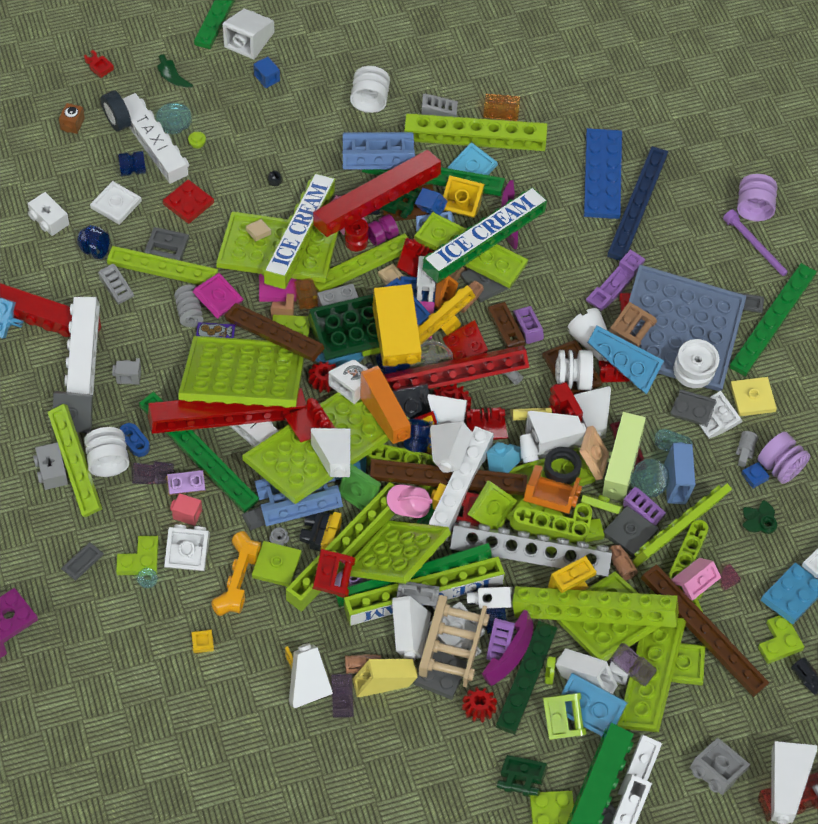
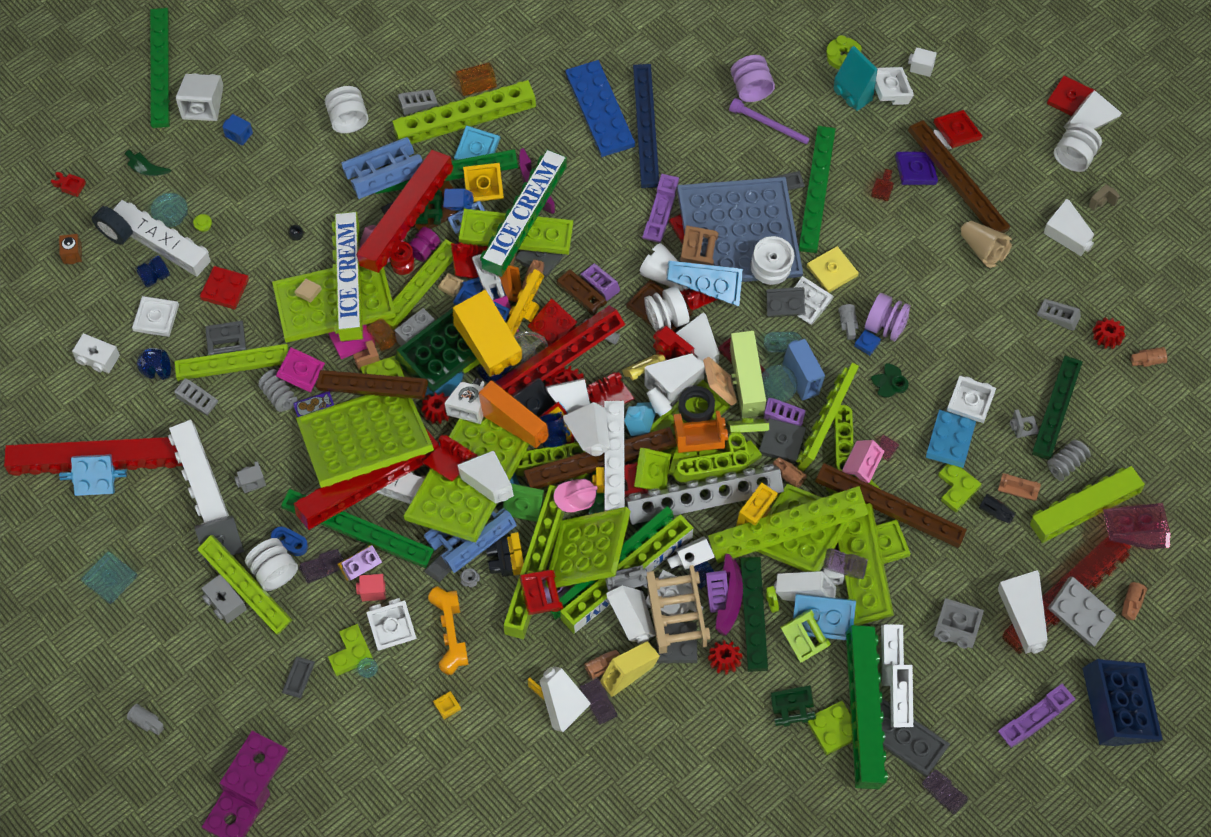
camera: 20 degrees left, 5 degrees up
(276, 563) = (479, 604): lime plate -> none

